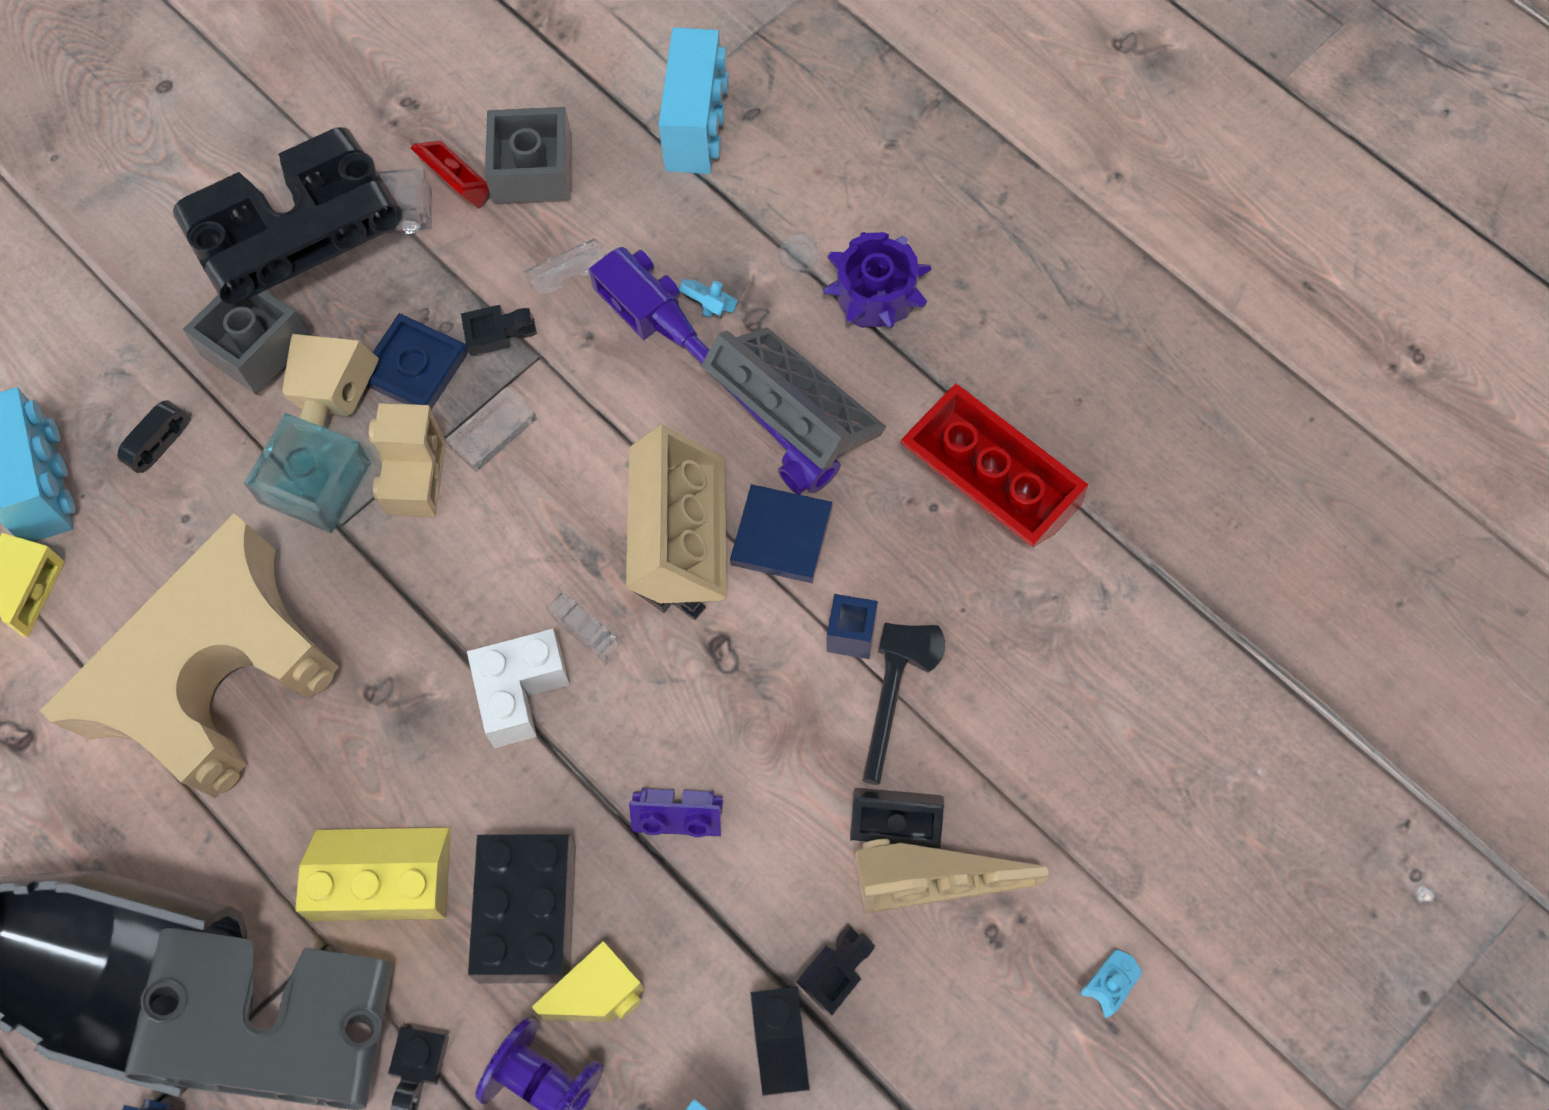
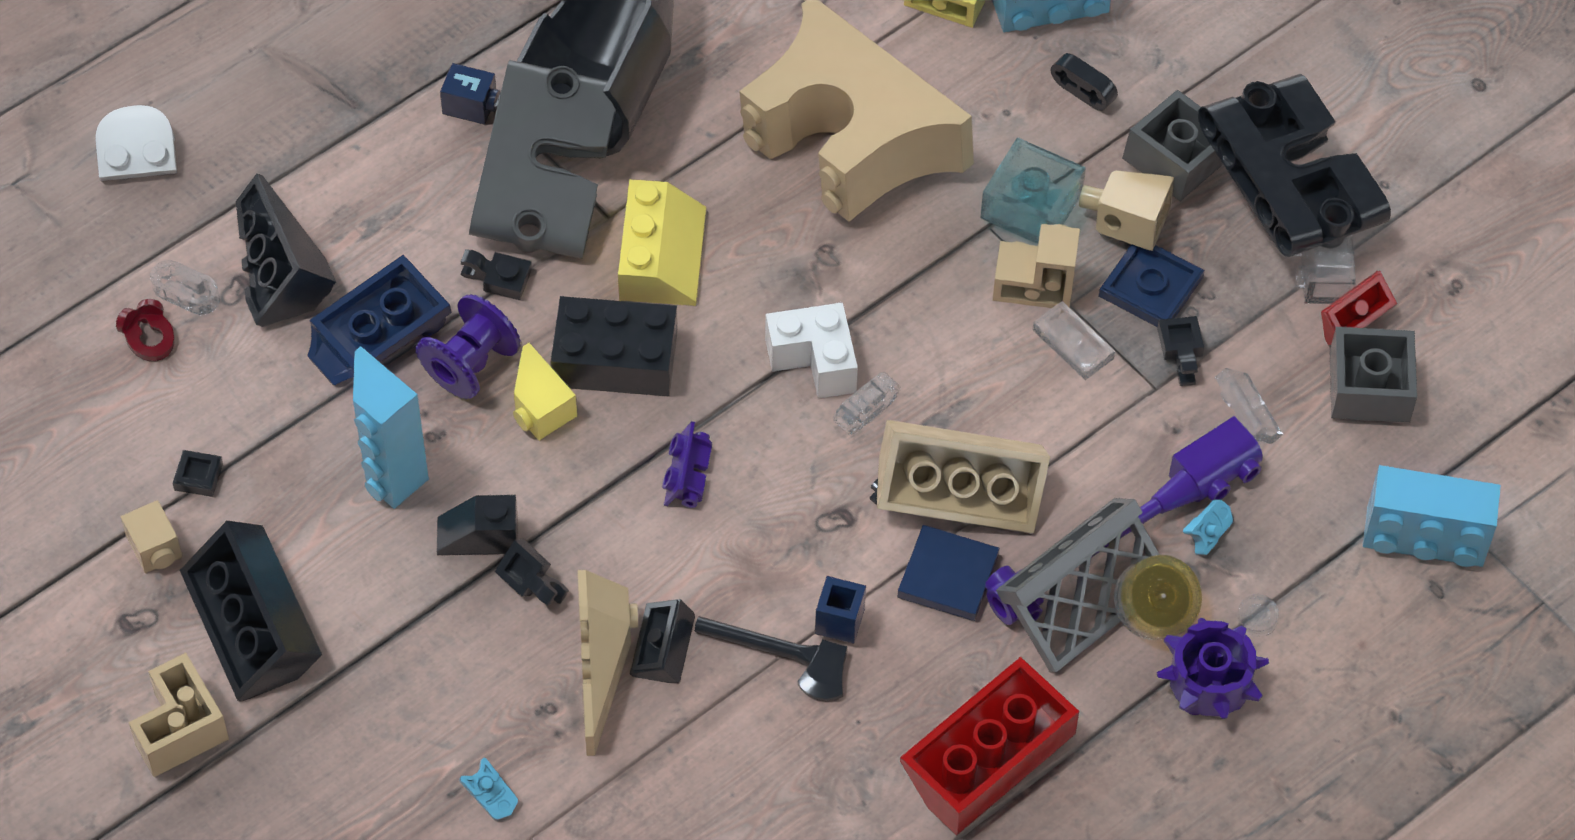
camera: 90 degrees right, 10 degrees down
(802, 330) = (1158, 597): none -> clear yellow piece

